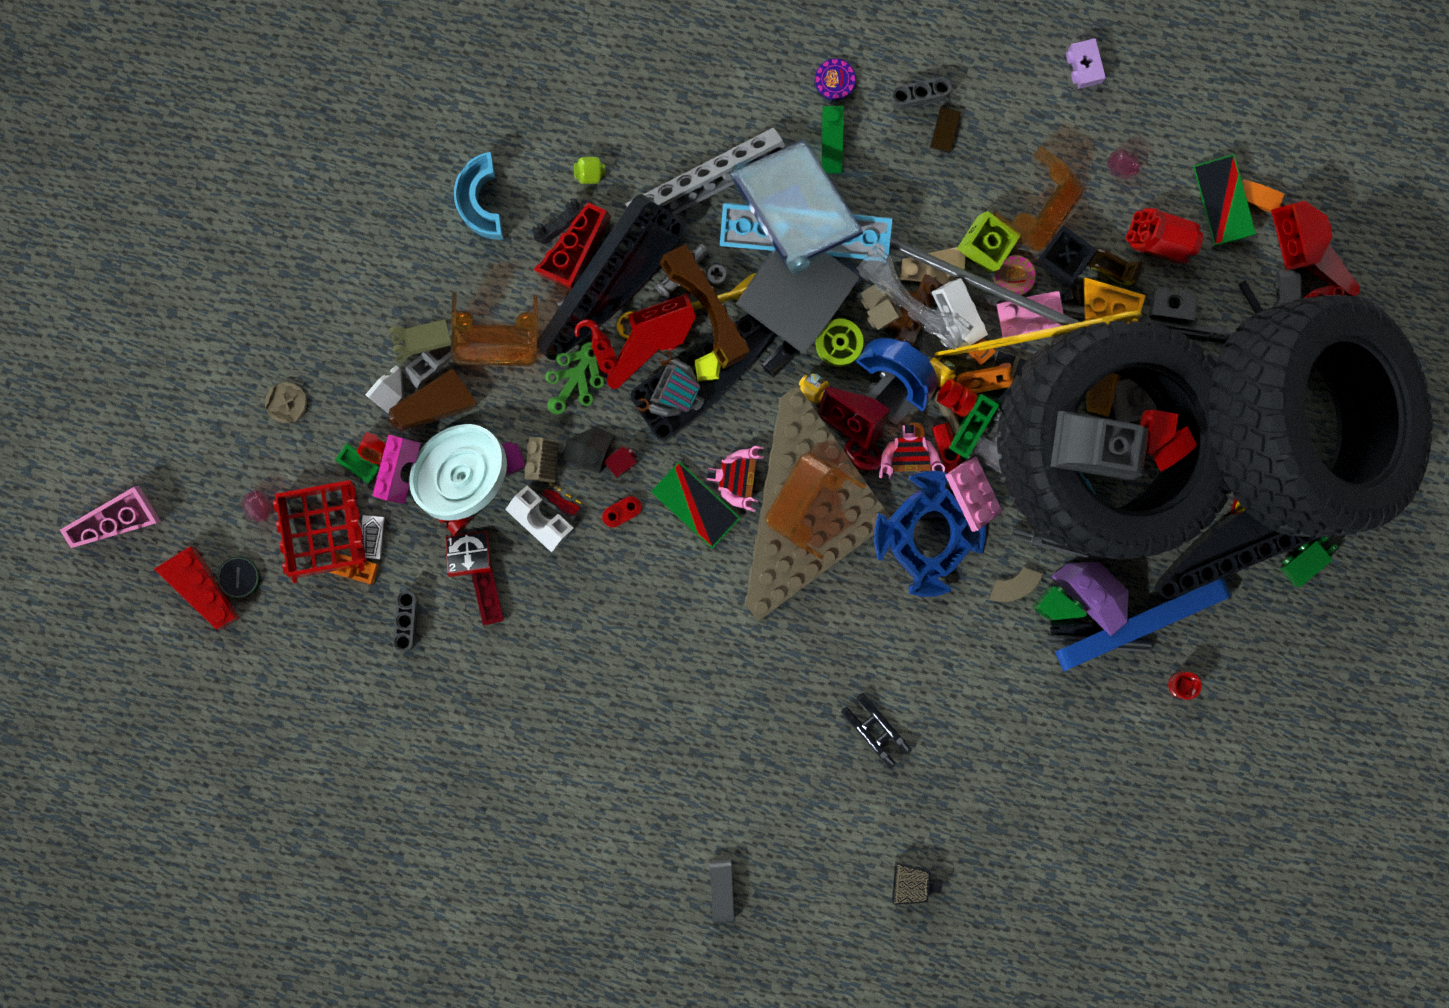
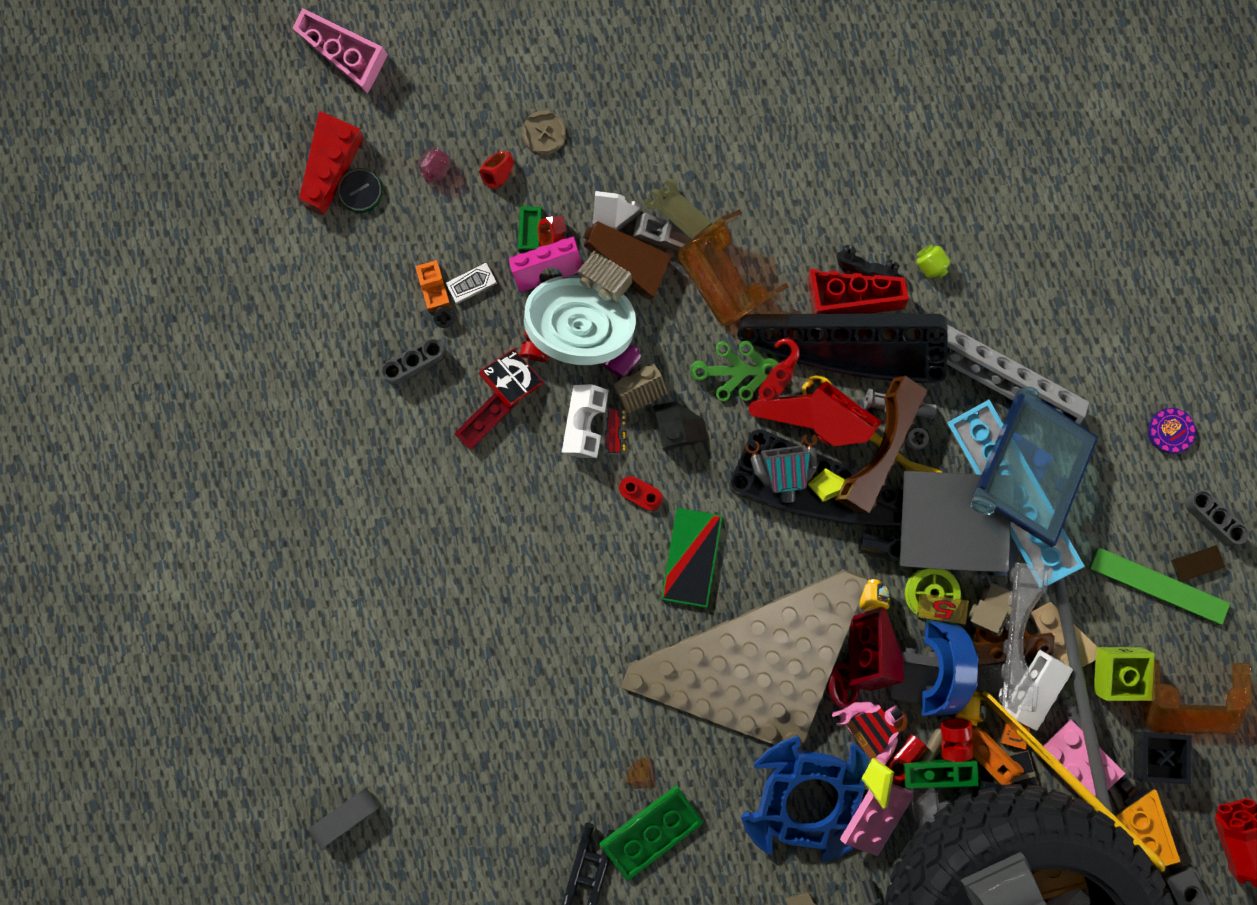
camera: 60 degrees right, 5 degrees down
(292, 459) = (497, 169): none -> red rock
(352, 525) = (422, 207): red window -> none
(391, 573) = (449, 321): none -> black bush
(437, 431) = (605, 277): none -> dark tan brick
(466, 193) = (841, 165): medium azure brick -> none
(621, 461) = (686, 462): dark red brick -> none
(737, 477) = (743, 579): torso -> none
(798, 495) = (764, 647): clear orange windscreen -> none
(829, 647) = (639, 771): none -> clear orange tile
(832, 138) = (1116, 463): green slope -> none
(855, 343) = (942, 608): none -> clear yellow tile
(879, 667) = (651, 833): none -> green tile
(942, 170) = (1159, 586): none -> bright green tile
(949, 476) = (879, 781): none -> neon yellow piece
(1016, 274) = (1111, 720): medium nougat tile -> none
(1115, 268) = (1183, 814): dark brown animal -> none

